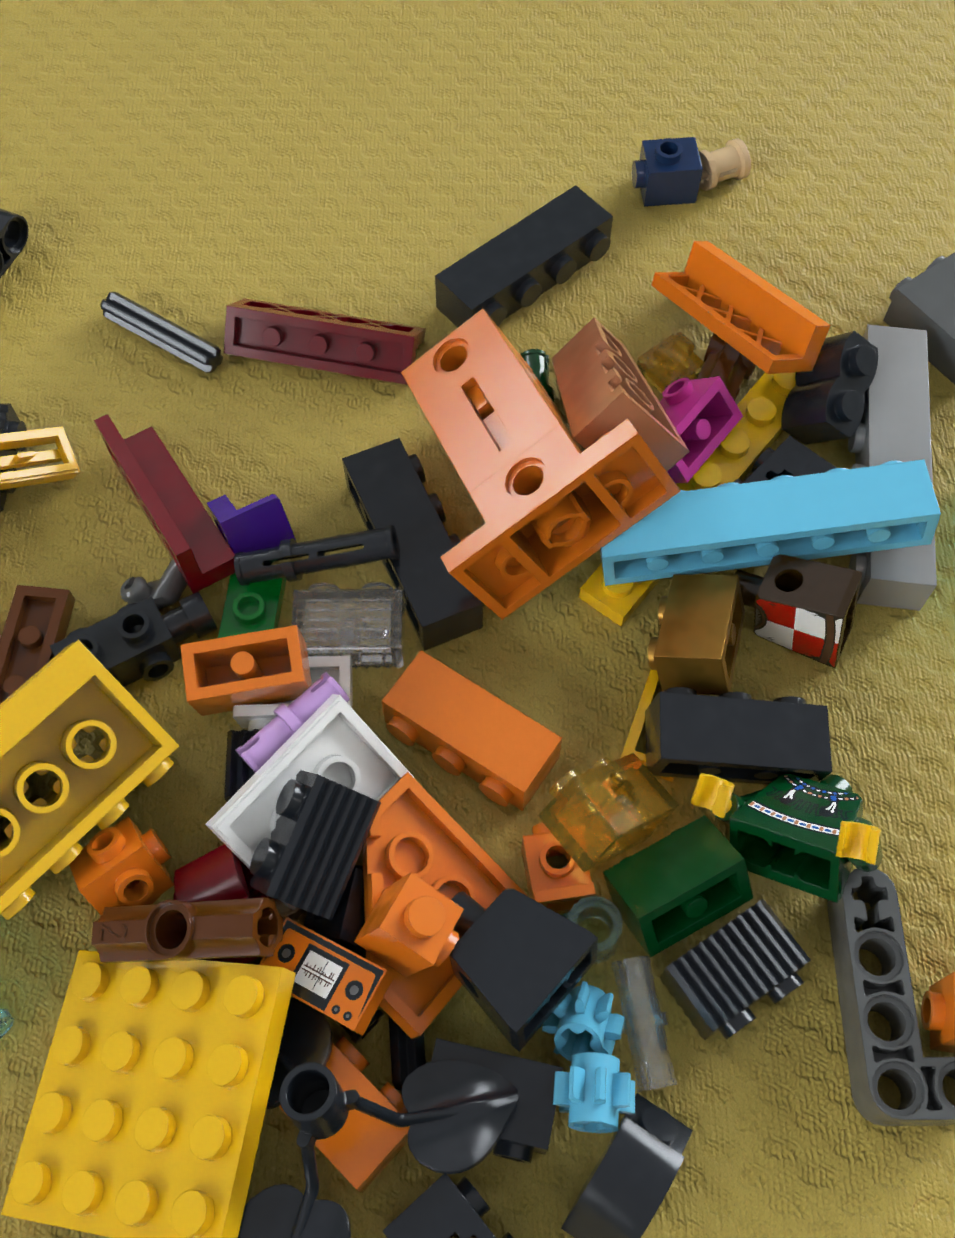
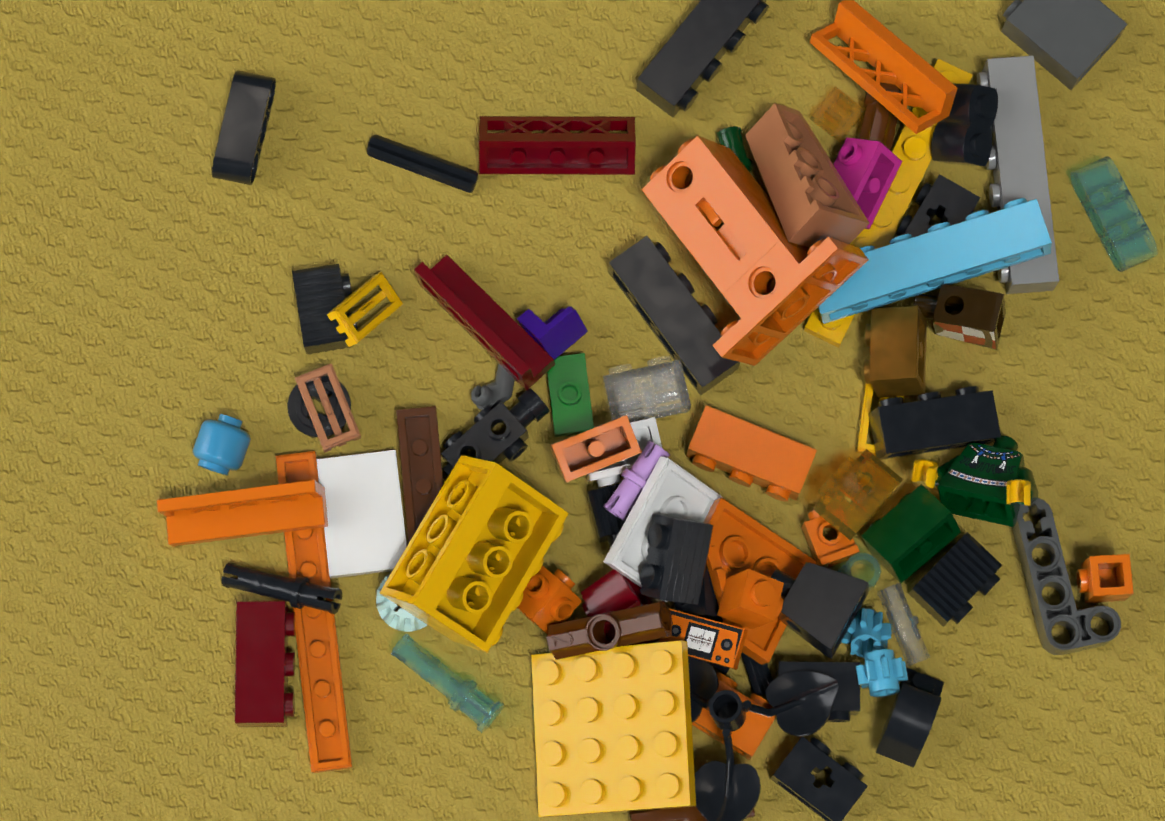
camera: 15 degrees left, 15 degrees up
(258, 567) = (597, 352): black pin -> none

